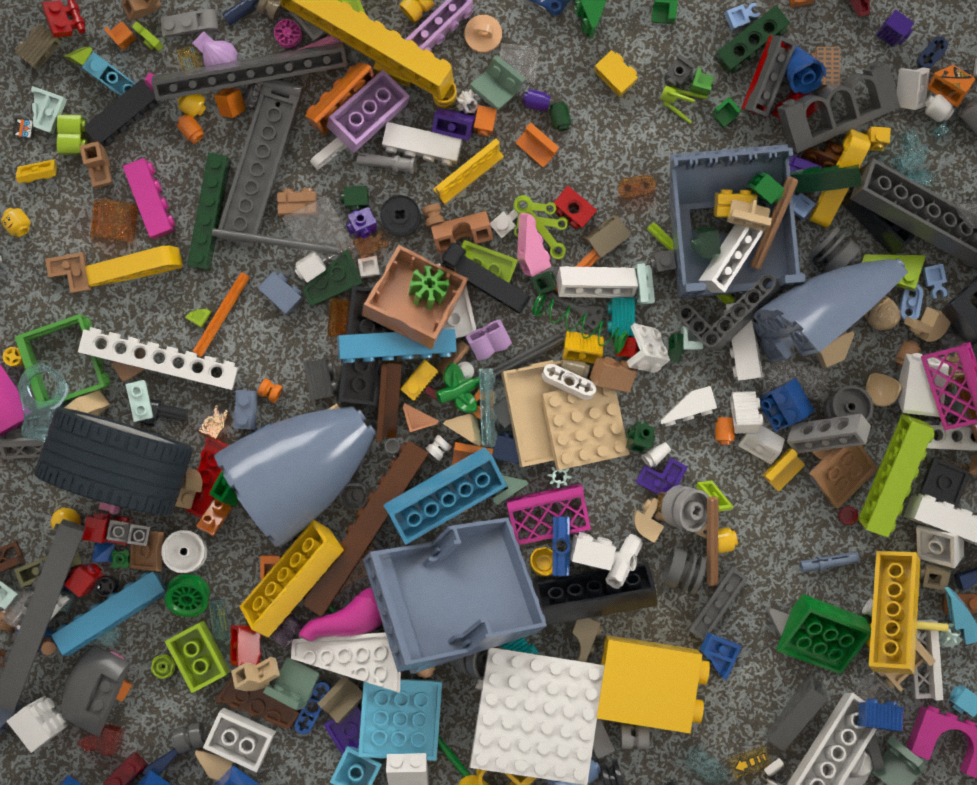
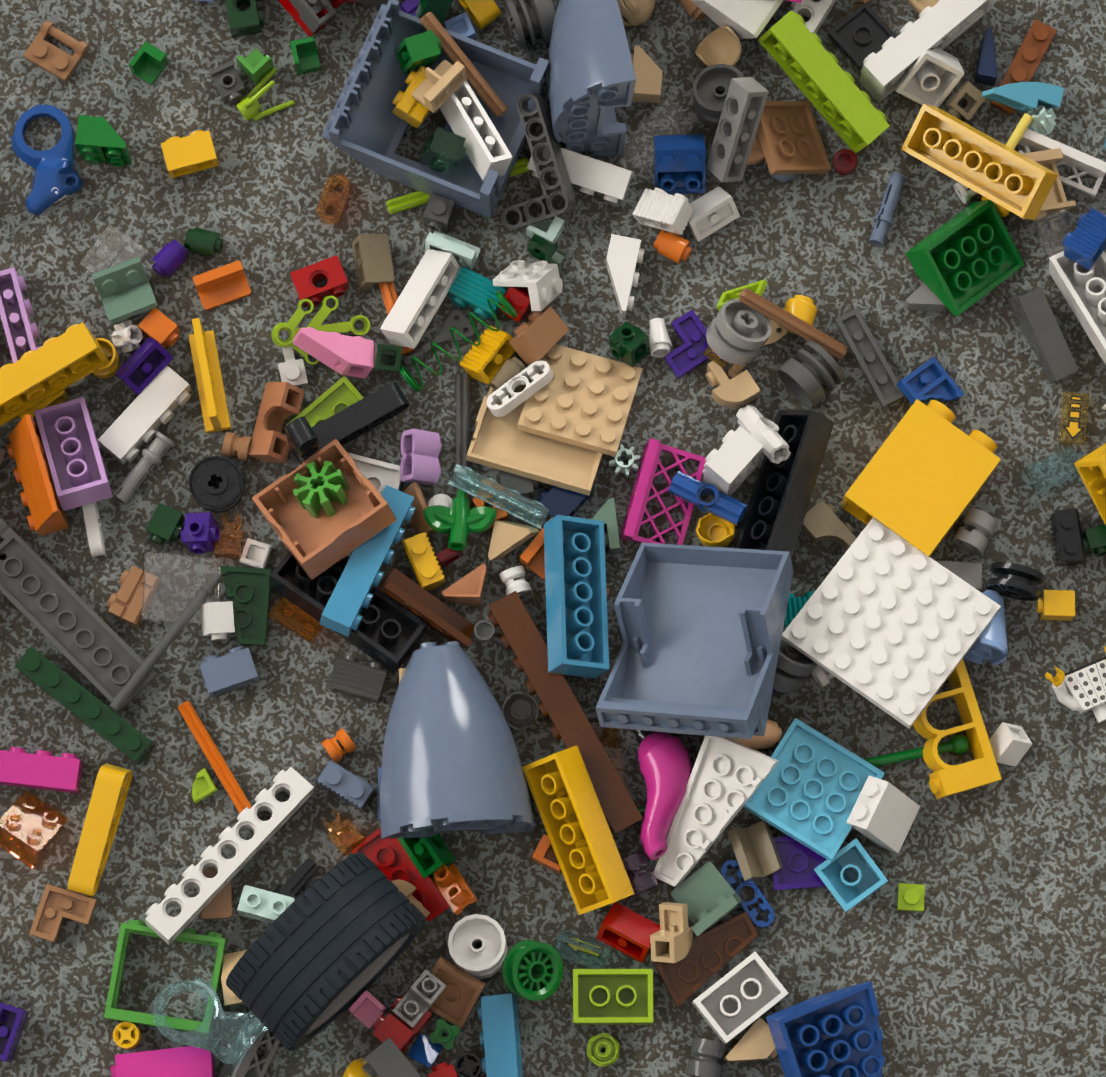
camera: 65 degrees left, 10 degrees down
(483, 33) = (55, 280): light nougat tile -> none
(774, 767) = (1093, 392): white tile -> none
(784, 469) = (753, 205): yellow panel -> none

